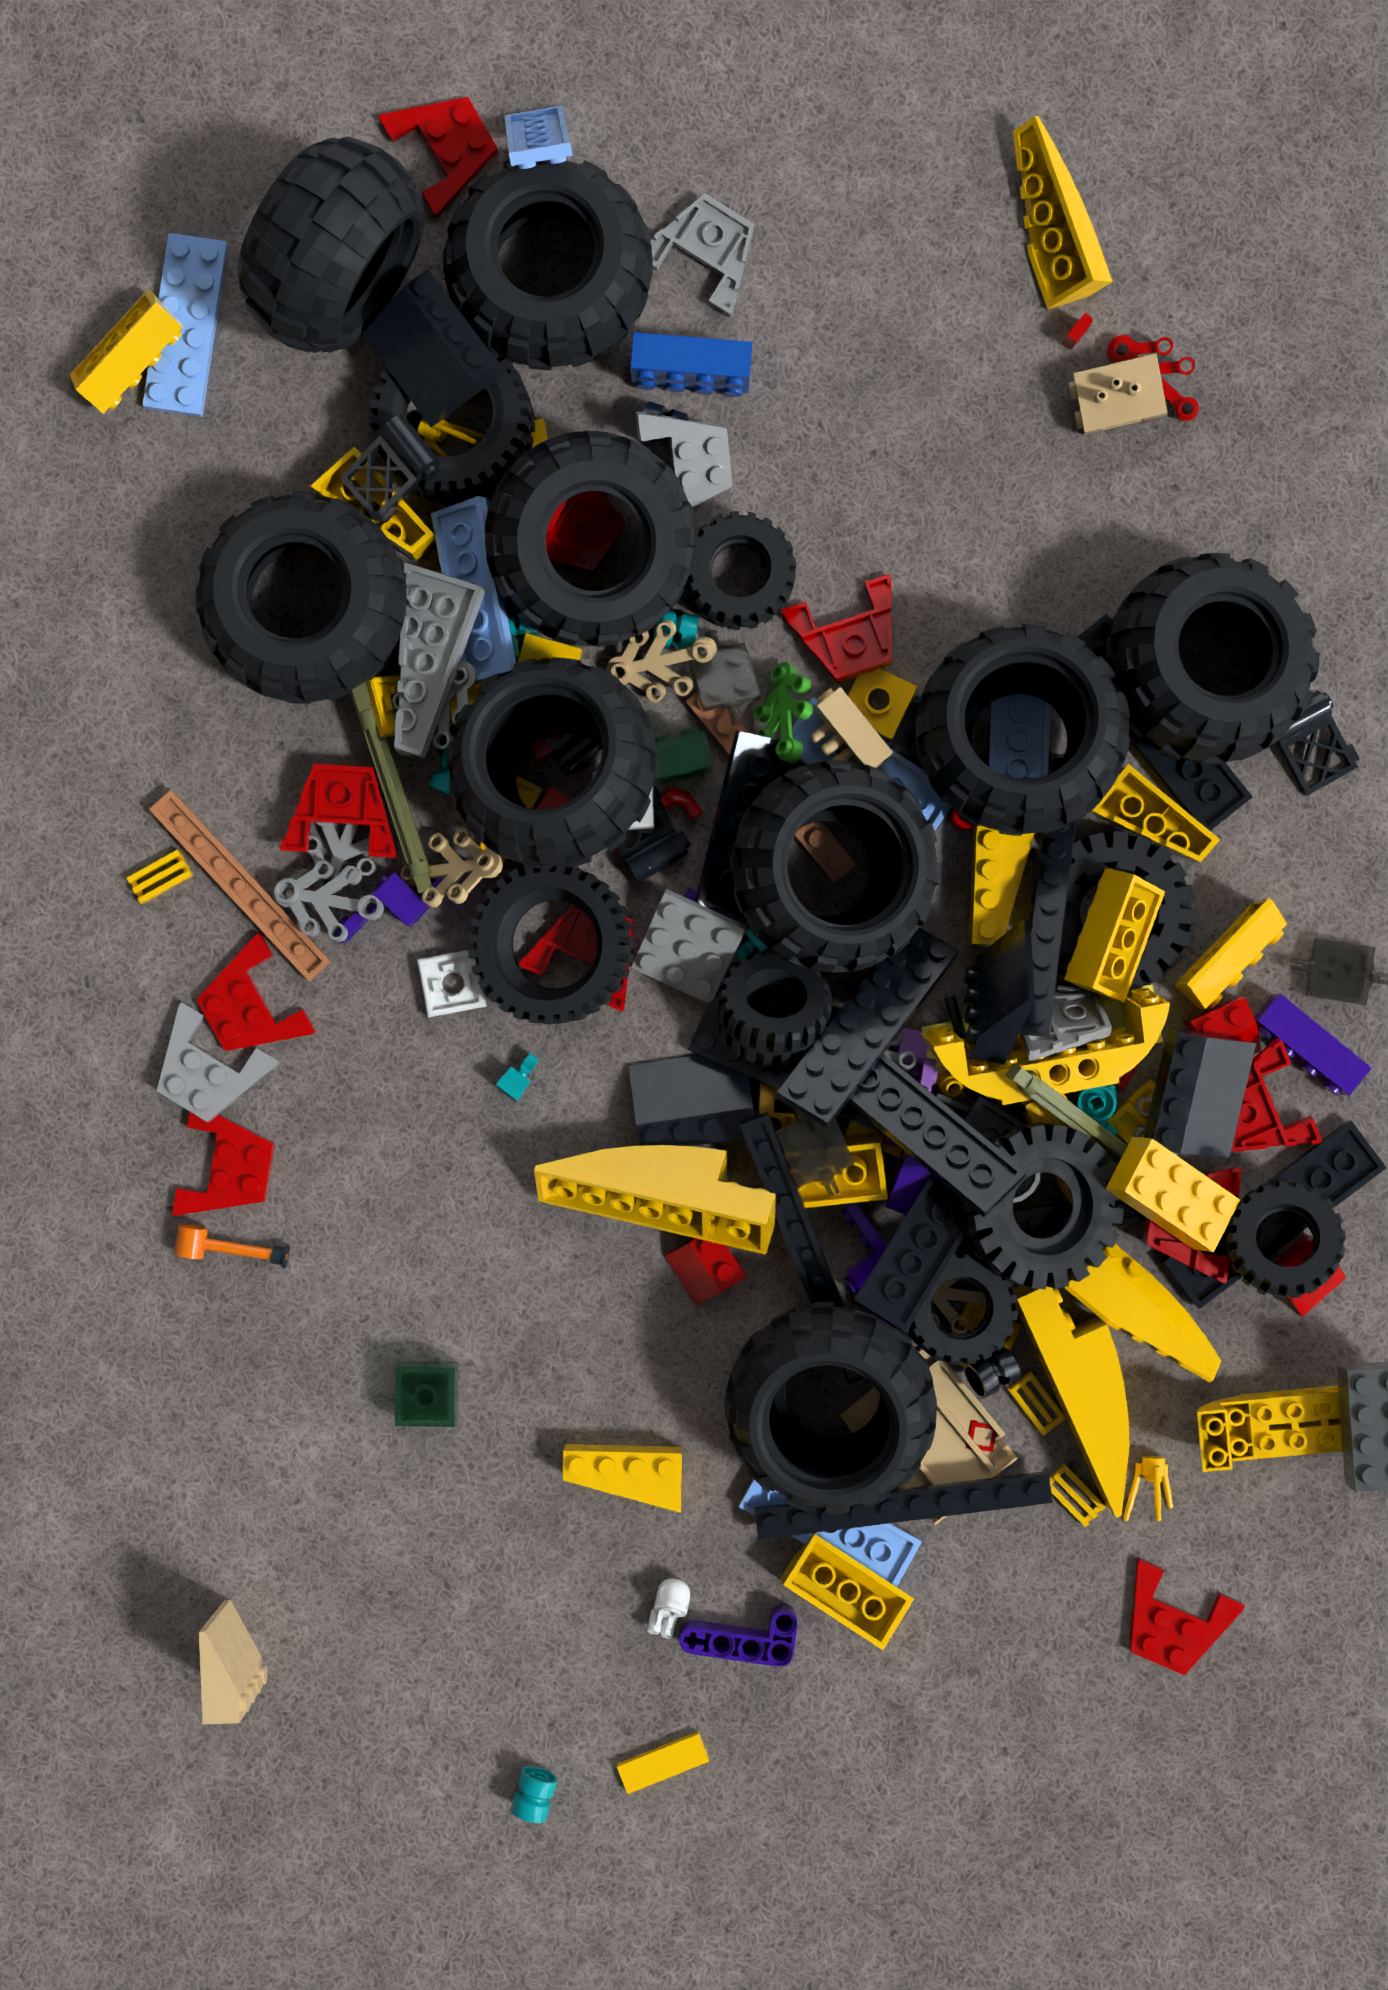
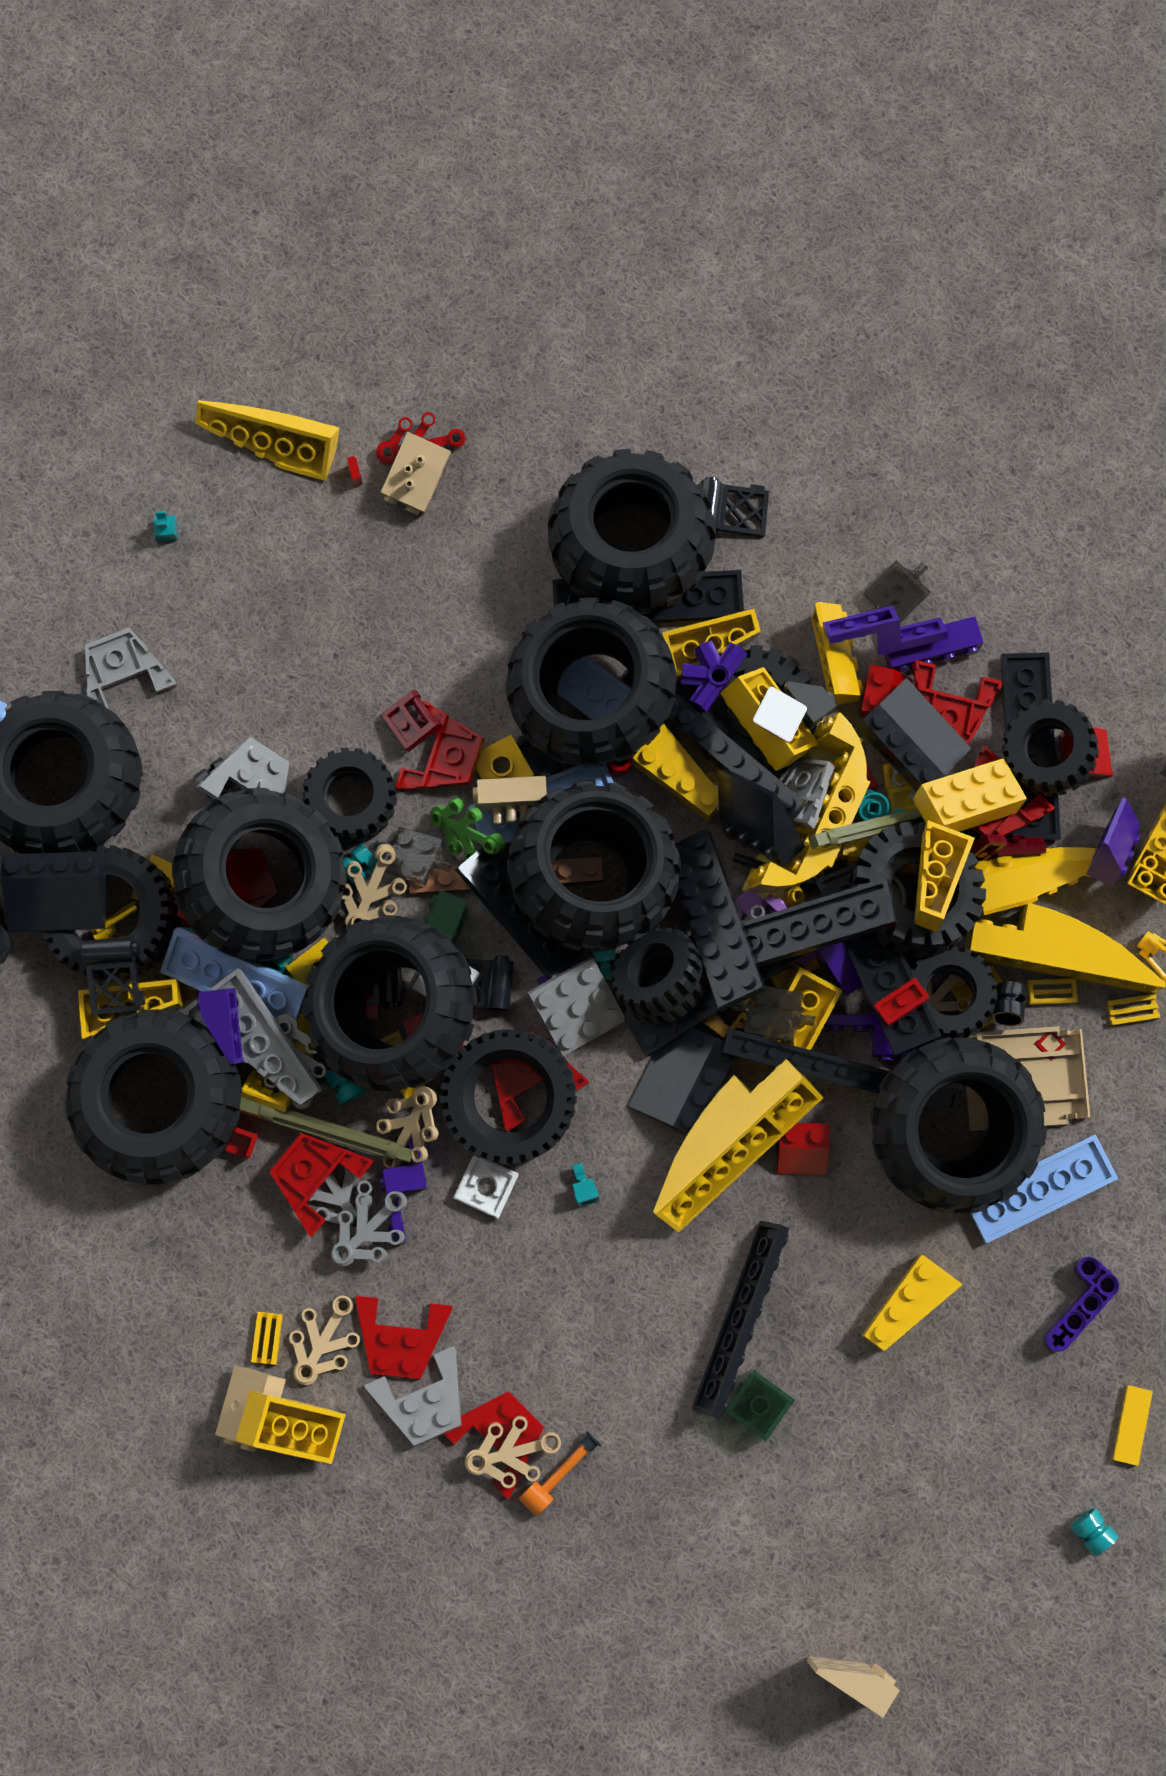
camera: 55 degrees left, 10 degrees down
(79, 909) = (241, 1383): none -> tan piece
(84, 961) = (290, 1427): none -> yellow brick
(191, 932) = (321, 1343): none -> tan plant
(213, 1187) = (508, 1453): none -> tan plant
(240, 885) = (314, 1285): nougat plate -> none
(325, 716) = (241, 1143): none -> red panel
(421, 609) = (221, 1017): none -> dark purple slope
(496, 1320) = (740, 1319): none -> black plate
(670, 1603) = (1022, 1339): white piece -> none
(681, 798) = (473, 941): red arm -> none
(691, 364) = (190, 730): blue brick -> none
(846, 1590) = (1094, 1208): yellow slope -> none
(851, 572) = (404, 724): none -> dark red plate
(883, 183) = (165, 527): none -> teal piece
(910, 1505) = (1062, 1127): black plate -> none
(912, 1270) = (901, 1002): none -> red plate
(1075, 1218) = (940, 868): none -> yellow wedge
(1125, 944) = (780, 714): none -> white sticker
(1129, 836) = (710, 664): none -> dark purple piece
(1135, 1242) = (987, 846): none -> dark red plate
(1161, 1274) = (1023, 846): none -> dark red plate
(1162, 964) = (818, 701): none -> dark grey slope
(1228, 1370) = (1115, 845): none -> dark purple slope
(1290, 989) = (885, 630): none -> dark purple bracket

